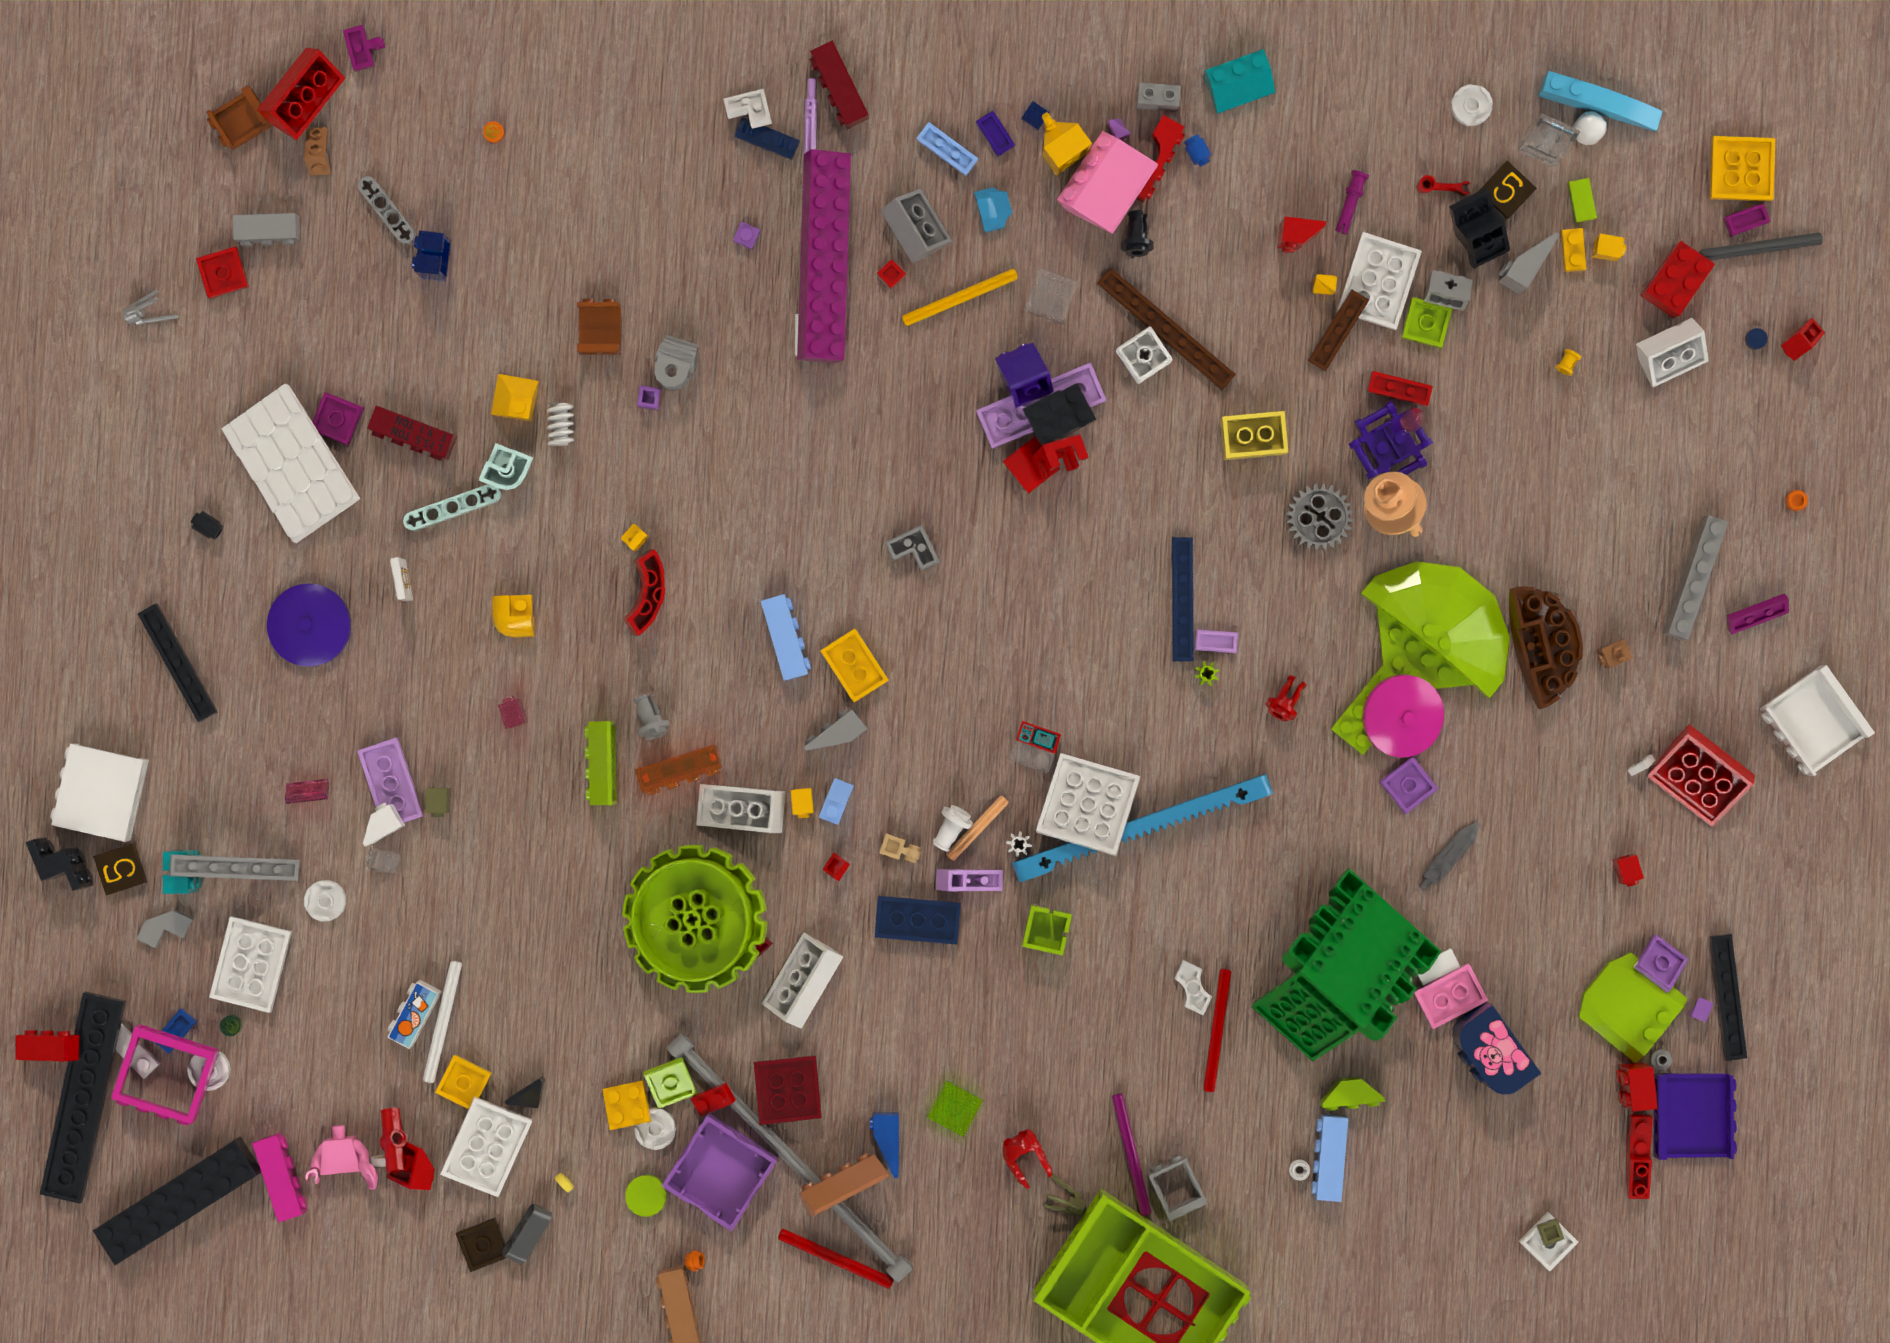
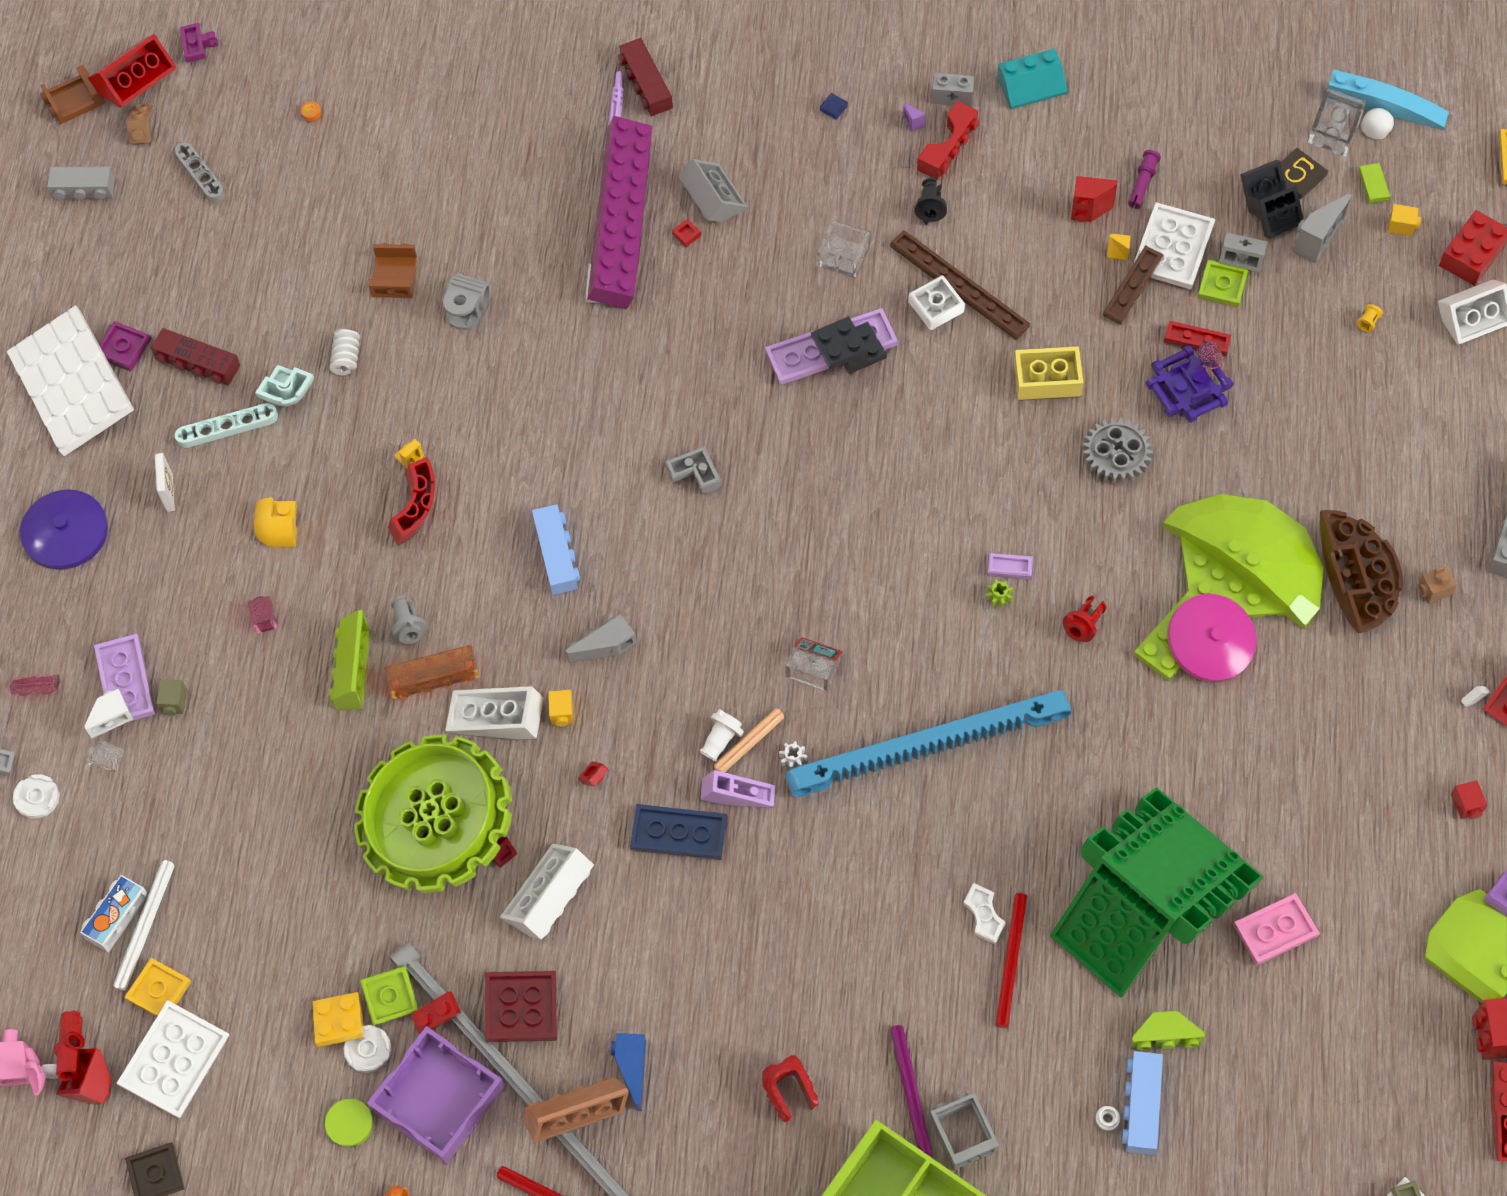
camera: 15 degrees right, 25 degrees down
(222, 272) = (32, 219): red plate -> none
(431, 255) = (236, 203): clear blue piece -> none
(515, 397) = (302, 332): yellow slope -> none
(527, 1234) = (206, 1158): dark grey beam -> none
(528, 1096) = (228, 1005): black slope -> none
(564, 1182) = (257, 1102): light yellow tile -> none
(649, 397) = (436, 332): medium lavender slope -> none
(746, 235) = (546, 198): medium lavender plate -> none
(749, 103) = (563, 91): white plate -> none
(767, 139) = (573, 120): dark blue plate -> none
(836, 801) = (596, 711): light blue slope -> none
(854, 665) = (626, 578): yellow plate -> none
(894, 846) = (658, 756): tan plate -> none
(947, 149) = (747, 130): light blue plate -> none
(955, 1108) = (710, 1037): clear neon green plate -> none
(959, 297) = (753, 253): yellow axle -> none
(993, 208) = (789, 180): dark azure slope -> none
(995, 133) = (794, 120): dark purple tile -> none
(1022, 466) = (819, 399): red slope -> none
(1024, 374) = (813, 311): dark purple slope -> none
(1045, 929) = (818, 845): lime piece -> none
(1059, 449) = (847, 378): red panel -> none
(1063, 144) = (861, 124): yellow piece -> none
(1073, 1205) = (843, 1147): olive plant -> none
(1088, 804) = (869, 713): white plate -> none
(1107, 182) = (900, 152): bright pink slope -> none
(1182, 599) = (974, 527): dark blue tile -> none
(1197, 150) = (991, 134): blue brick -> none
(1395, 504) = (1194, 427): light nougat piece -> none
(1408, 785) = (1220, 711): medium lavender tile -> none
(1431, 184) = (1218, 163): red brick -> none
(1443, 965) = (1260, 898): white tile -> none
(1449, 855) = (1268, 784): flat silver piece -> none
(1471, 105) = (1259, 104): white tile -> none
(1492, 1051) = (1328, 984): dark blue brick -> none
(1573, 250) = (1368, 224): yellow plate -> none

